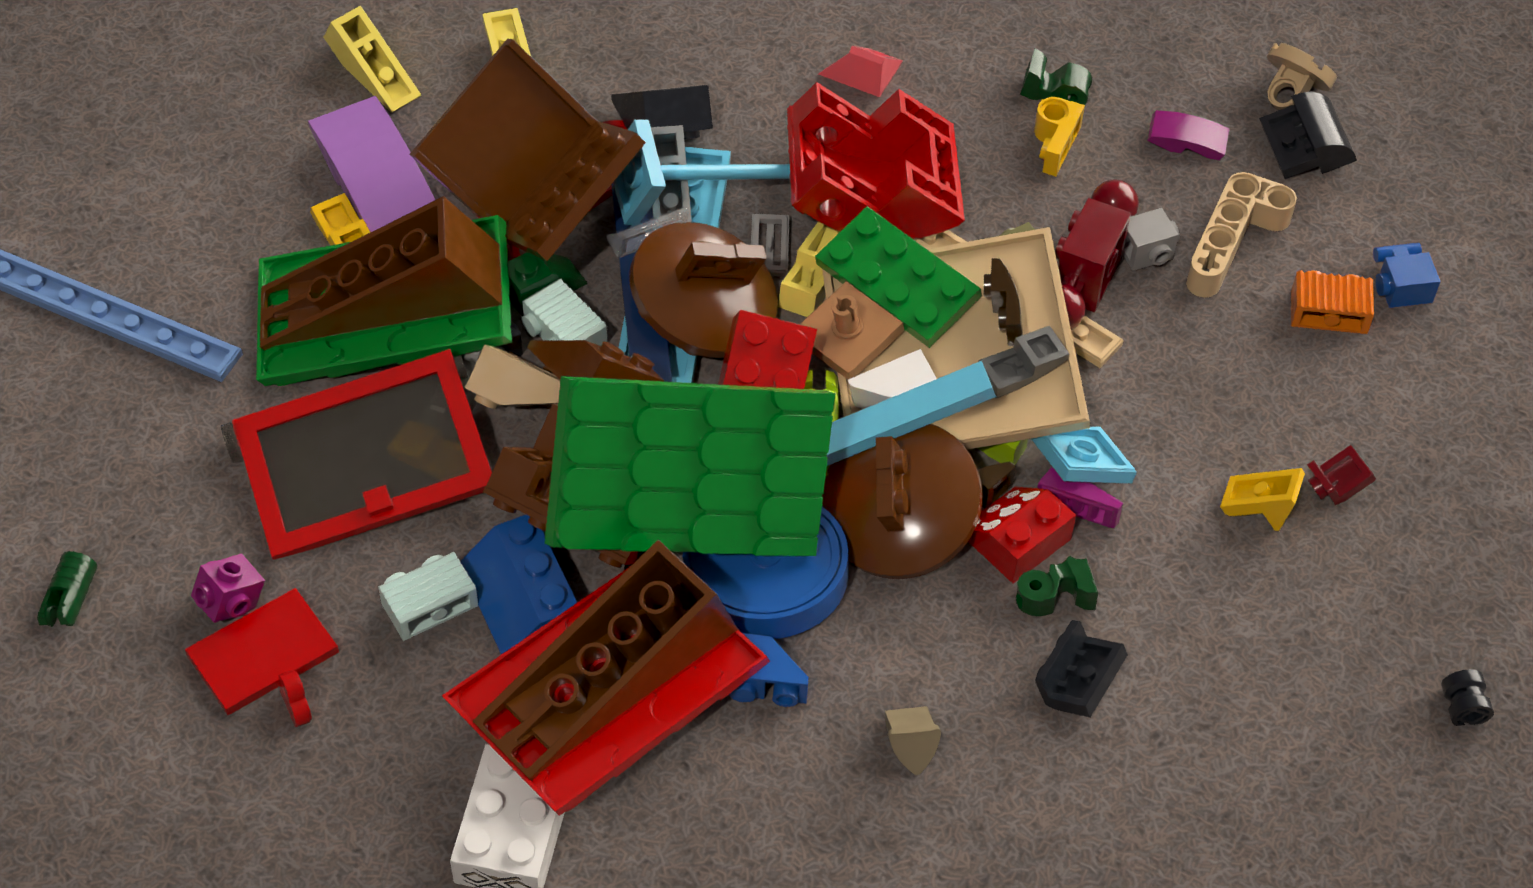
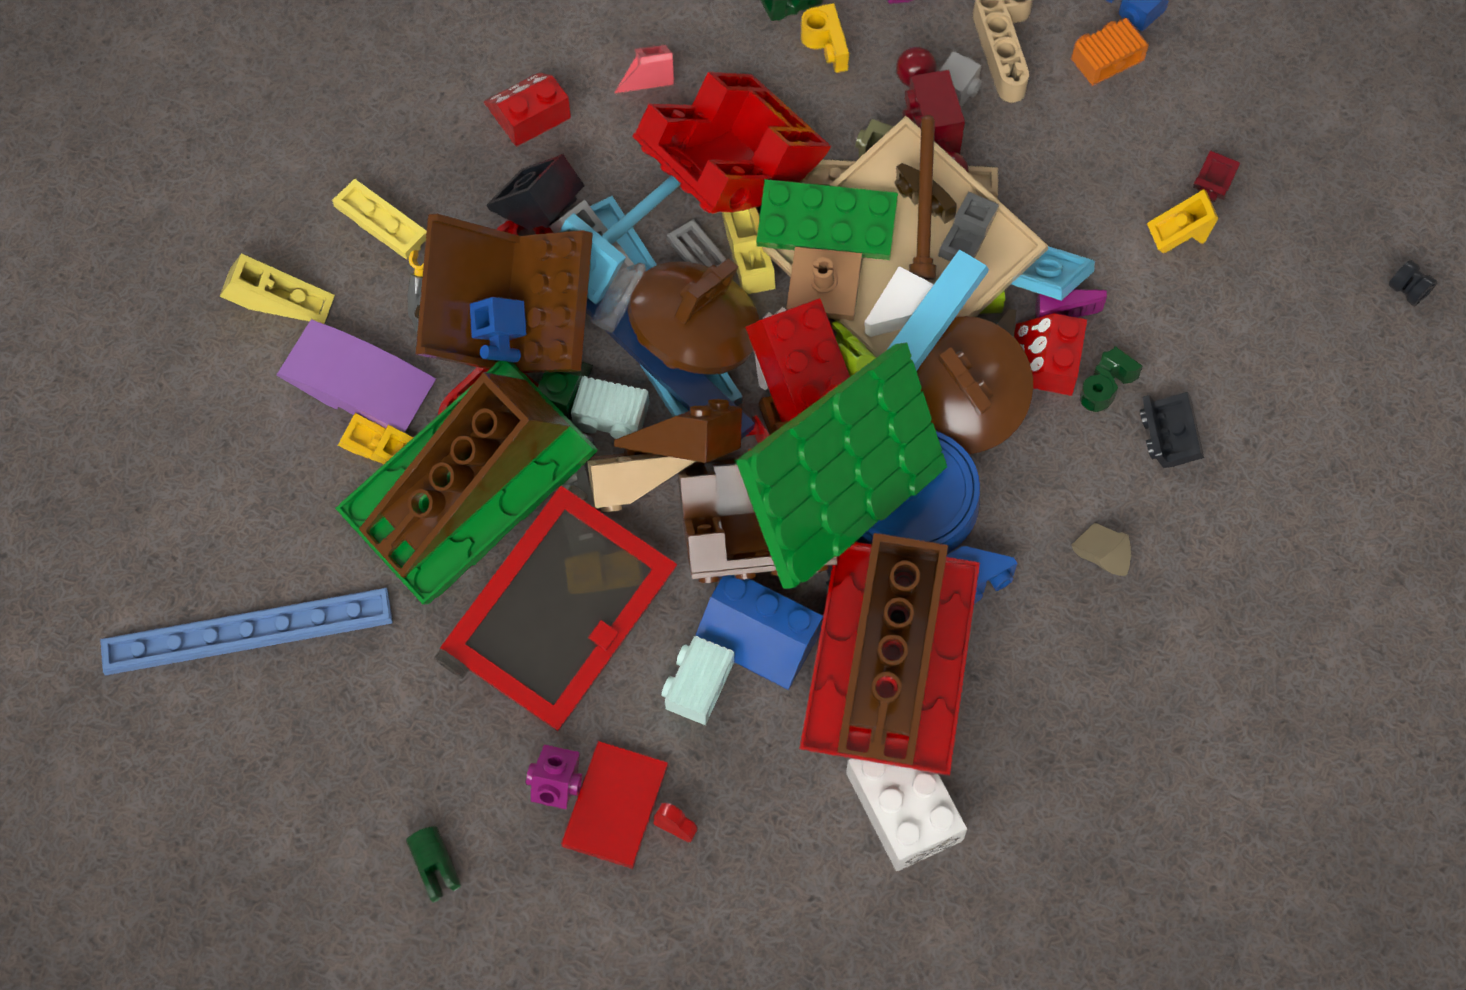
camera: 35 degrees left, 10 degrees up
(513, 180) = (499, 322): none -> blue brick
(725, 43) = (530, 107): none -> red slope
(953, 361) = (922, 263): none -> reddish brown piece

